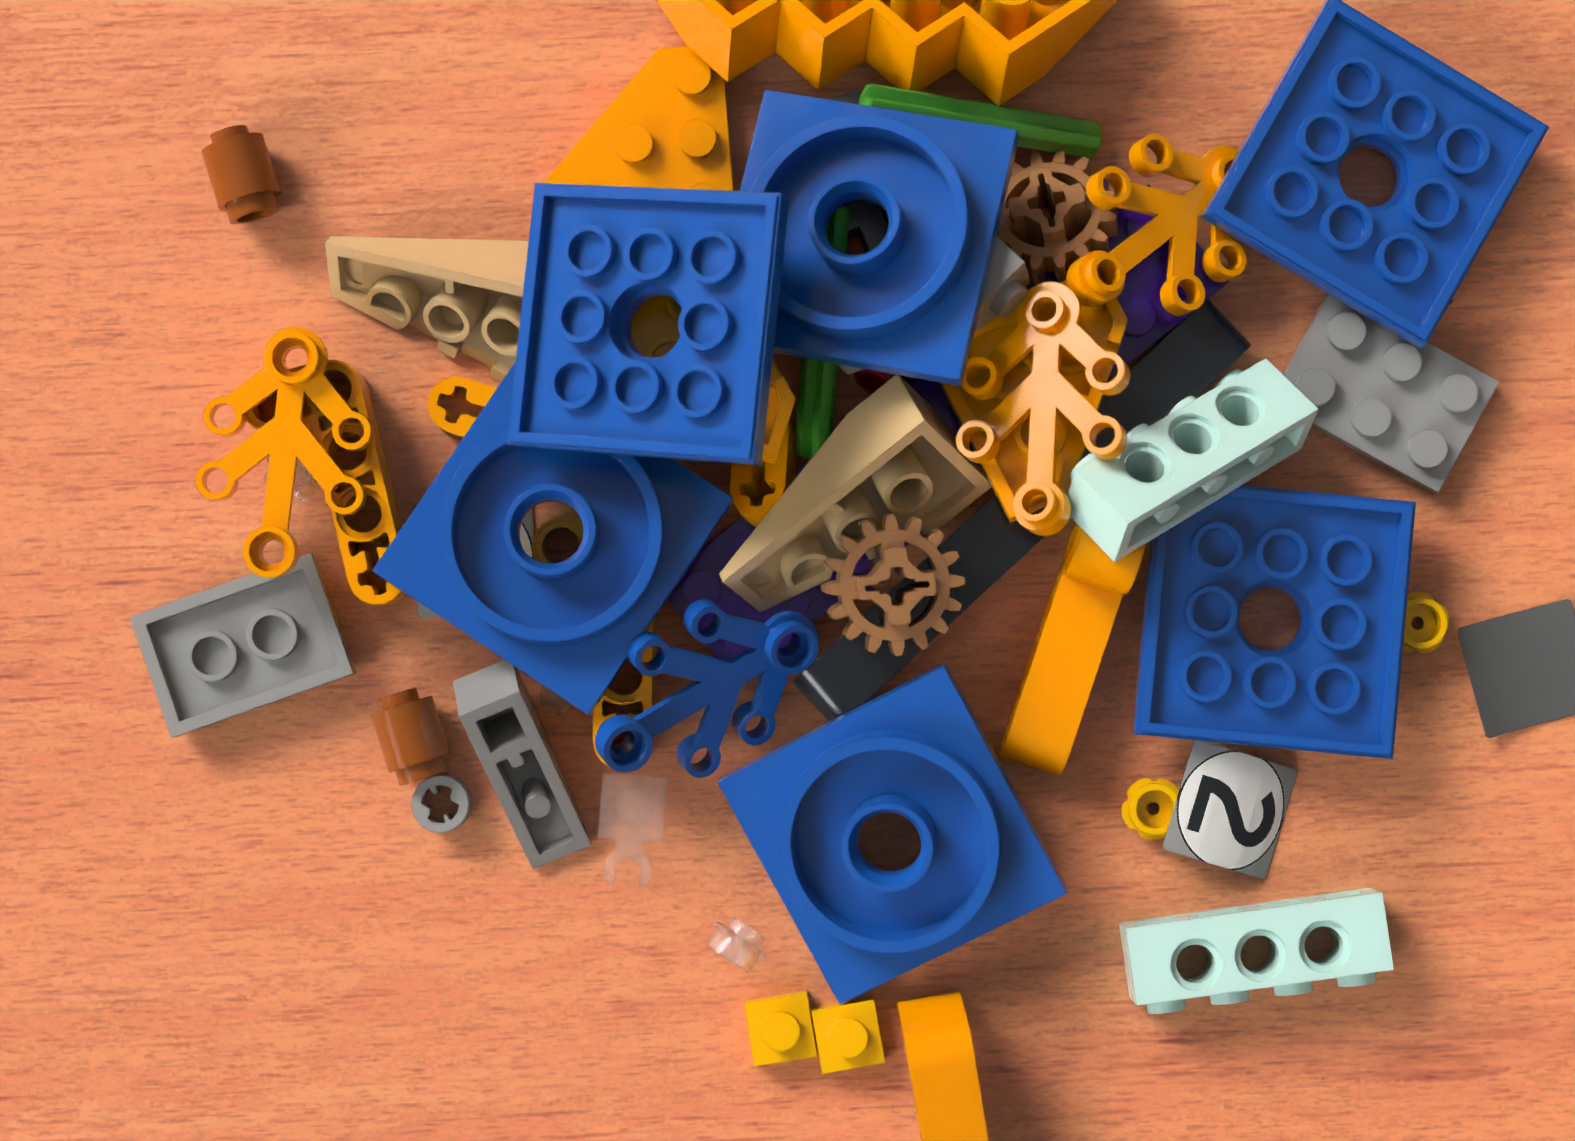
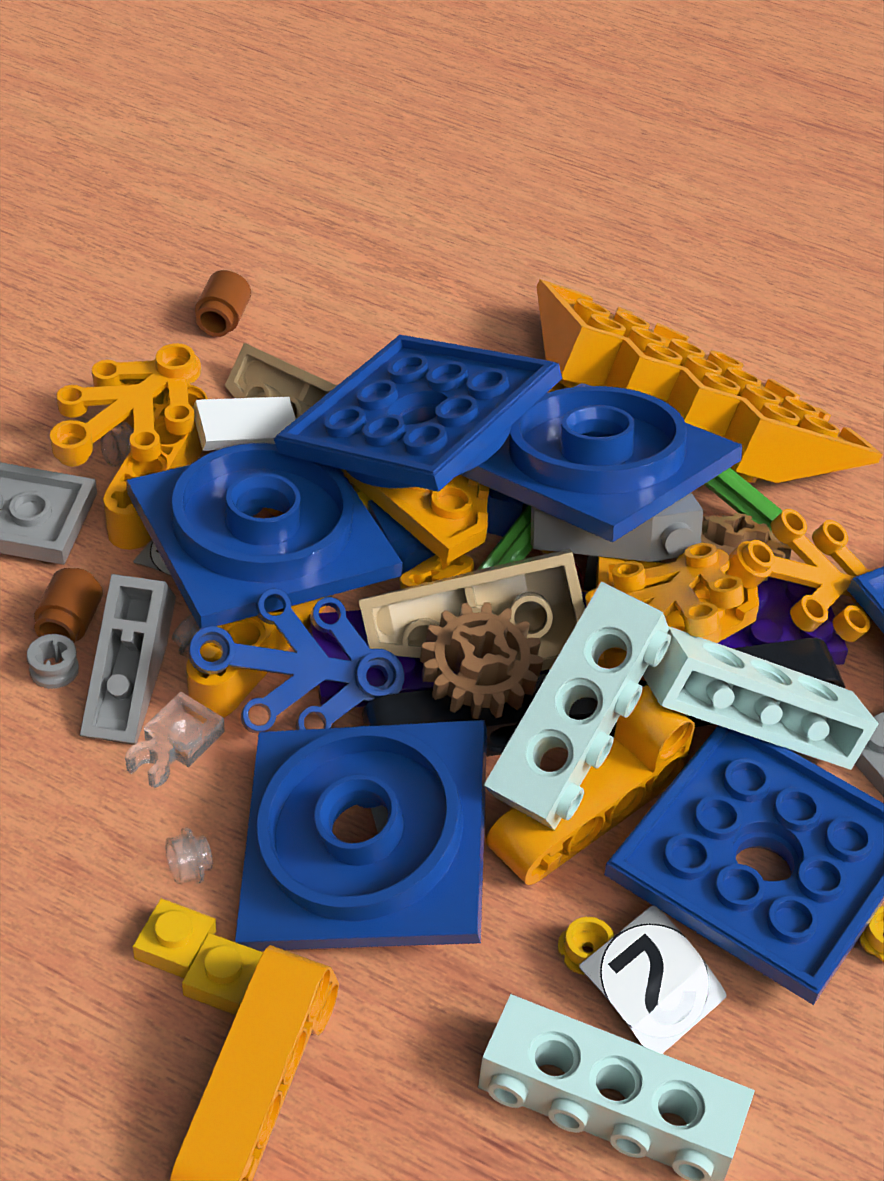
camera: 25 degrees right, 40 degrees down
(422, 379) = (241, 420): none -> white tile
(1039, 525) = (606, 623): none -> light aqua brick

